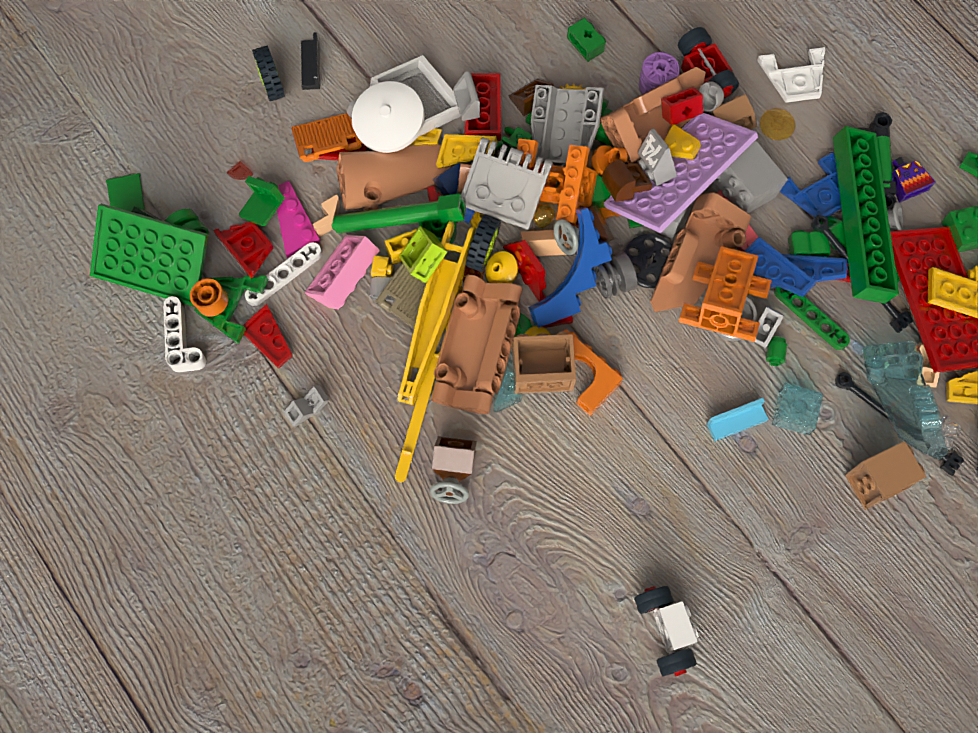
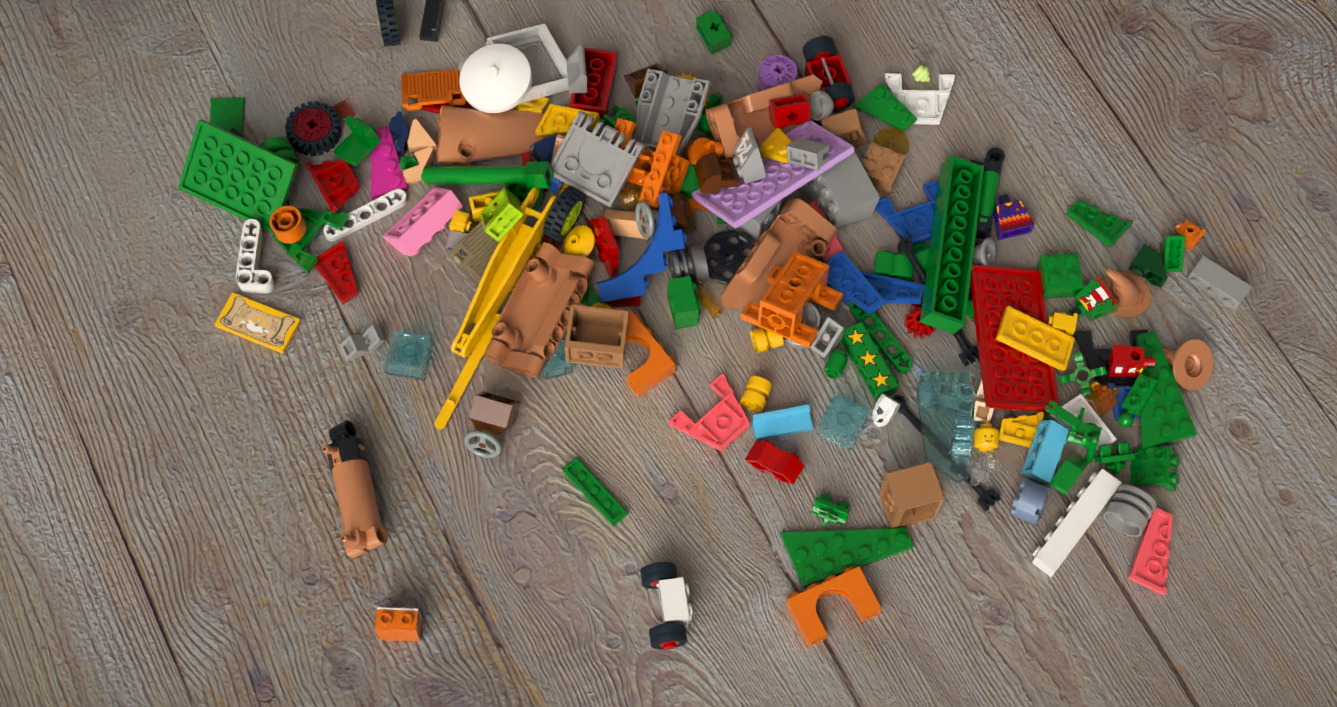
camera: 10 degrees right, 5 degrees down
(196, 402) = (257, 323): none -> tile
(211, 206) = (309, 140): none -> wheel
(301, 182) = (400, 130): none -> dark blue slope
(316, 214) = (407, 162): none -> green plate
(323, 189) = (419, 138): none -> light nougat slope
(330, 564) = (354, 490): none -> nougat piece
(356, 412) = (408, 355): none -> clear light blue brick
(402, 698) = (398, 624): none -> orange piece
(569, 521) = (595, 492): none -> green tile
(617, 313) = (683, 302): none -> green brick
(637, 308) = (707, 302): none -> clear yellow axle
(679, 429) = (721, 424): none -> coral wing
(701, 338) = (763, 339): none -> yellow wheel
(707, 392) = (755, 394): none -> yellow wheel
(714, 146) = (807, 153): none -> light grey hinge
(733, 458) = (781, 464): none -> red brick
(768, 89) = (886, 107): none -> green wing
(779, 146) = (883, 167): none -> medium nougat piece
(792, 51) = (921, 74): none -> yellowish green plate
(802, 606) = (850, 584): none -> orange arch
(803, 502) = (829, 511): none -> green hips
(808, 344) = (868, 361): none -> green brick
(814, 544) = (828, 553): none -> green wing
(835, 391) = (885, 410): none -> white rock
(844, 297) = (913, 324): none -> red gear
(942, 400) = (986, 438): none -> yellow head

